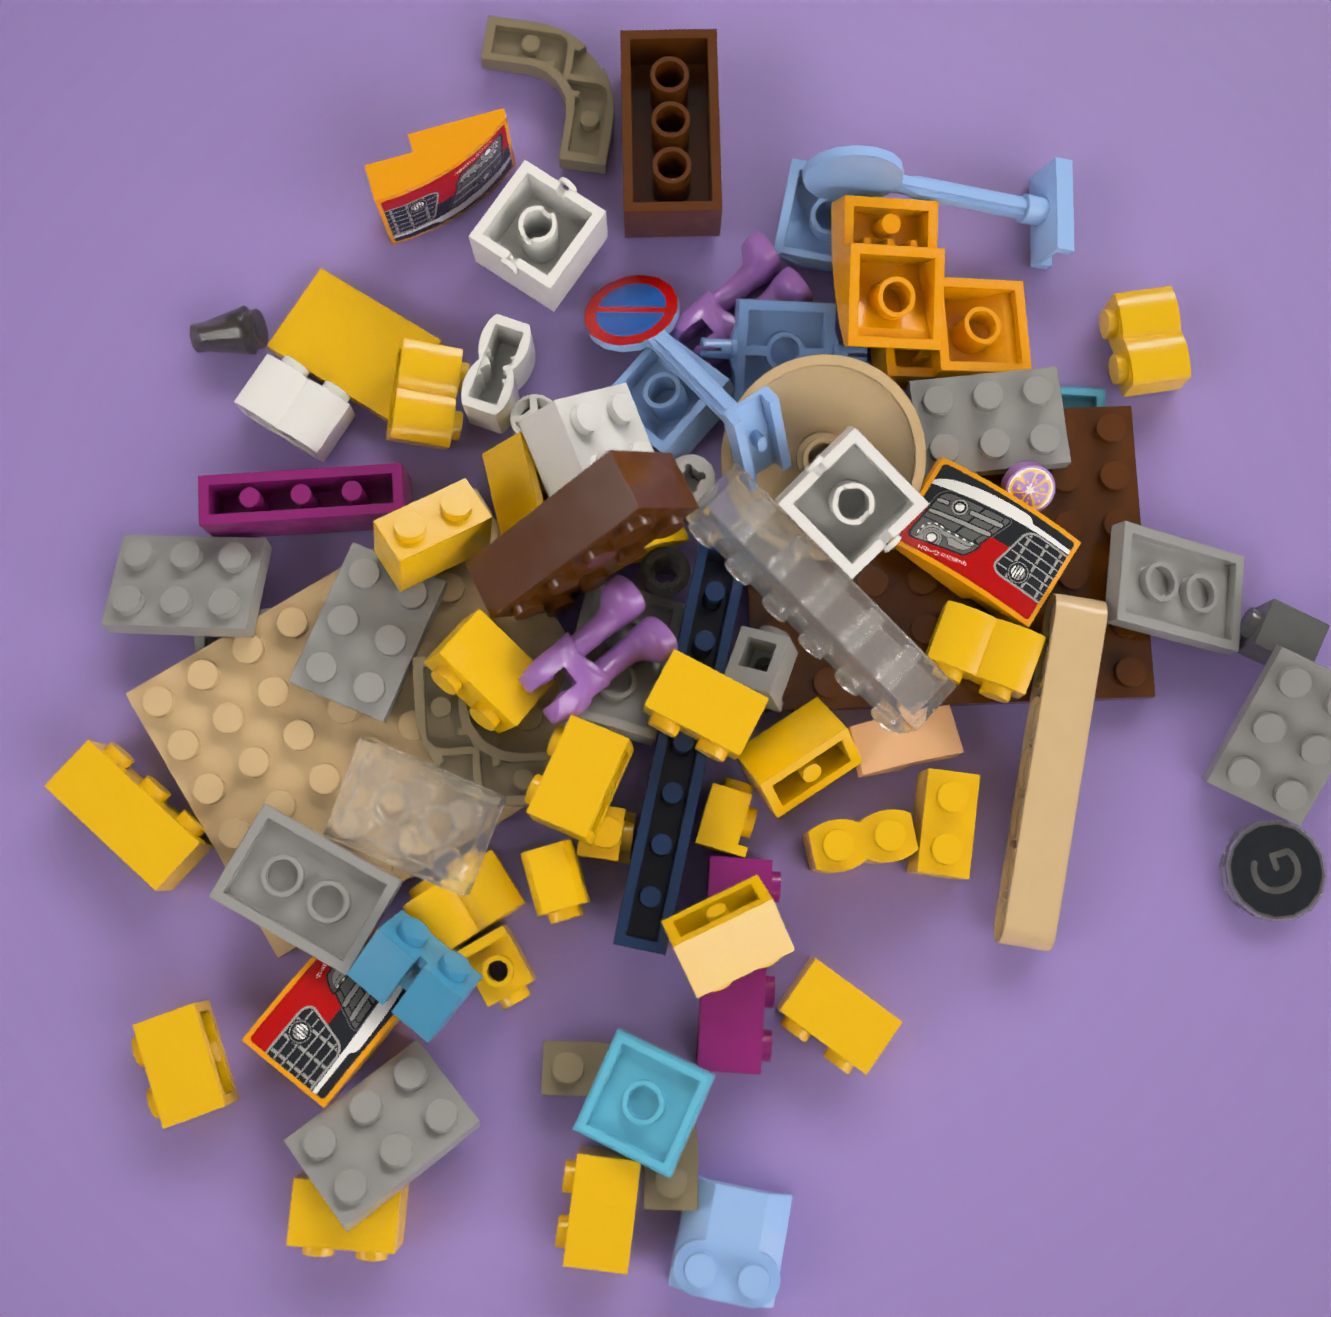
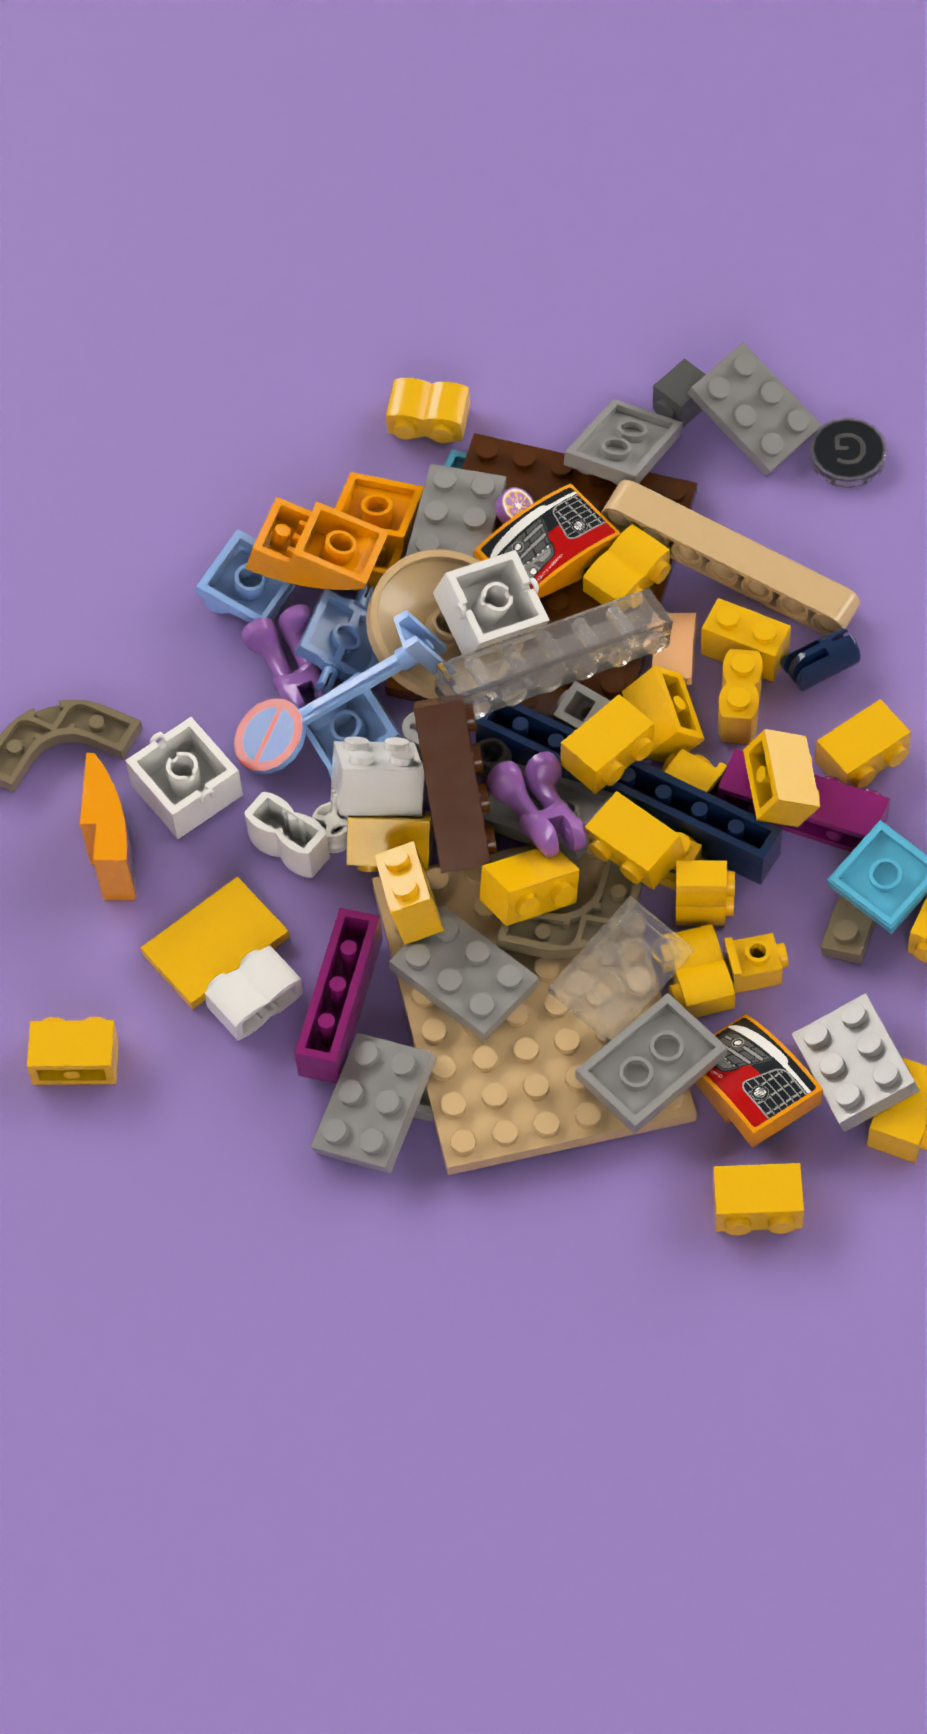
camera: 65 degrees left, 20 degrees down
(130, 814) = (546, 1191): yellow brick -> none
(169, 241) = (73, 1051): none -> yellow brick
(232, 332) = (169, 1026): clear smoke cone -> none
(426, 395) = (282, 892): yellow brick -> none
(429, 971) = (743, 999): dark azure piece -> none
(670, 133) = (136, 665): reddish brown brick -> none
(878, 172) = (298, 442): light blue piece -> none
(948, 926) = (821, 659): none -> dark blue arm

